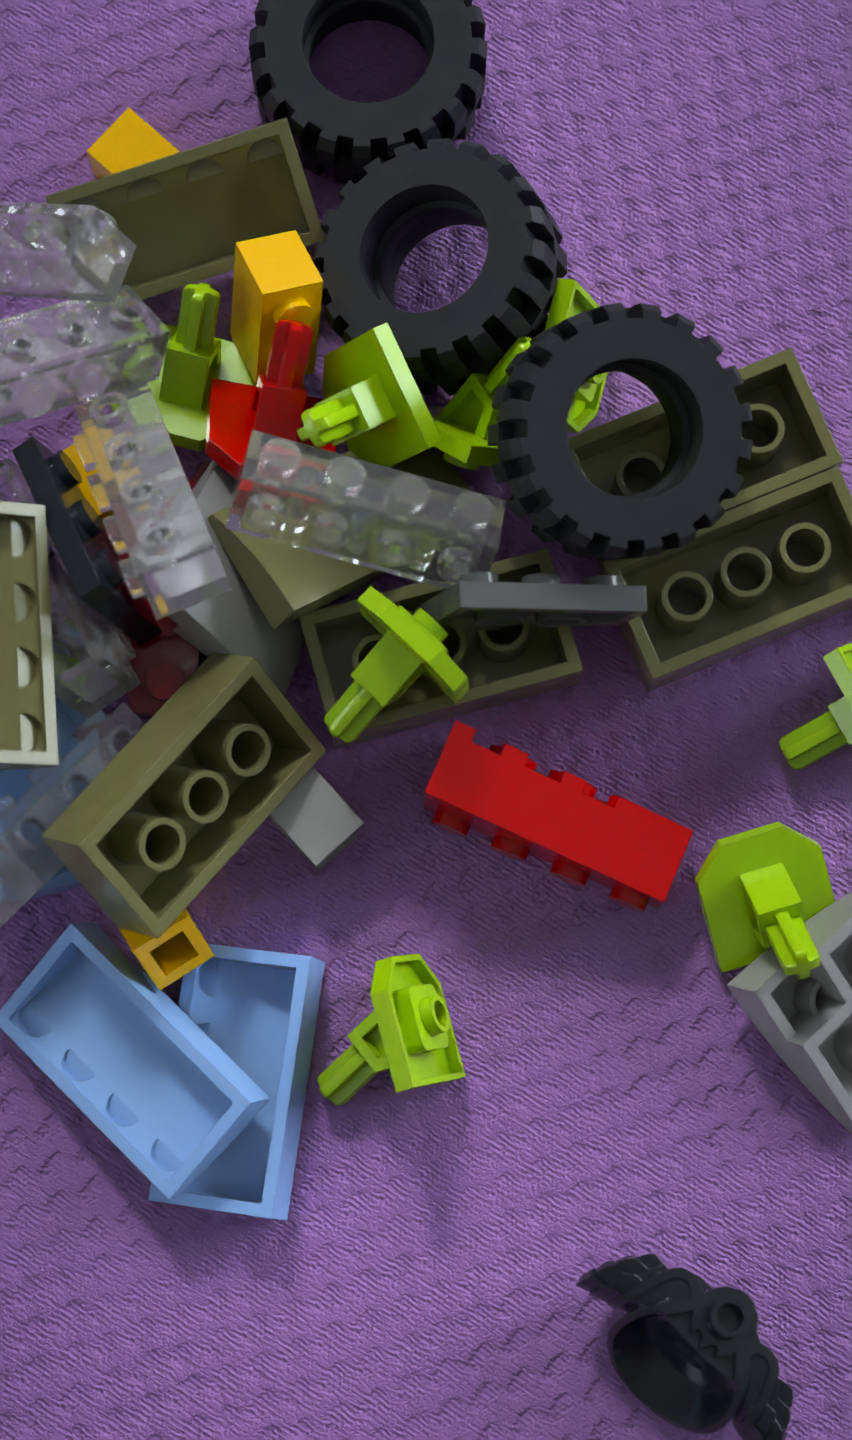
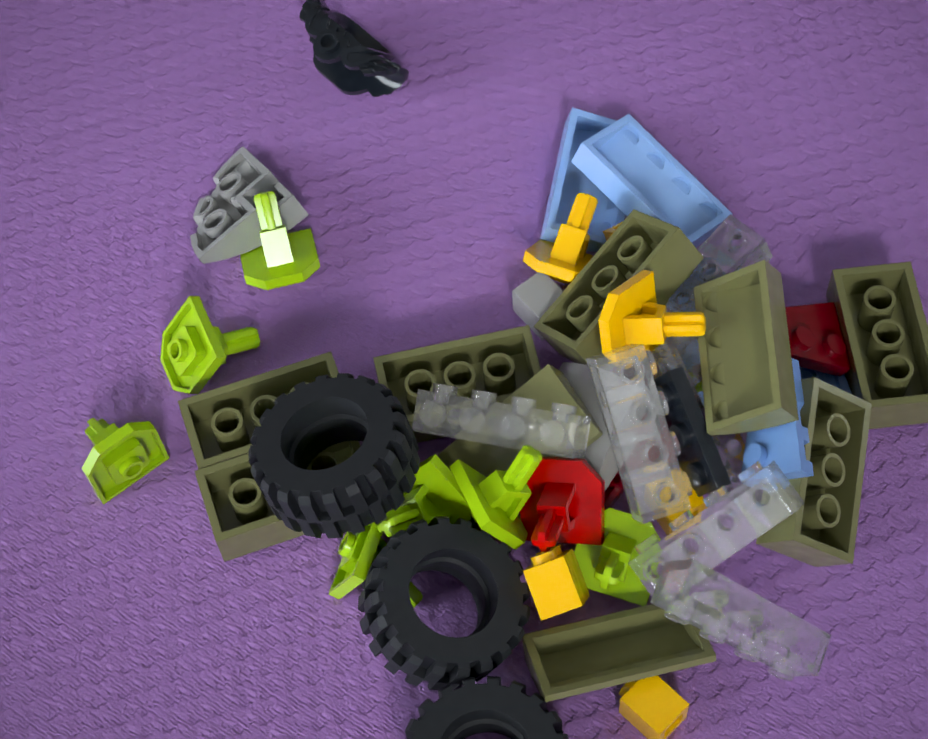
camera: 170 degrees left, 20 degrees down
(138, 686) = (636, 318): none -> yellow piece
(275, 898) = (568, 254): none -> yellow piece
(403, 1034) = (494, 189): lime piece -> none
(405, 652) = (483, 344): lime piece -> none
(542, 595) = (410, 369): dark grey wing -> none
(554, 820) = (400, 296): red wedge -> none

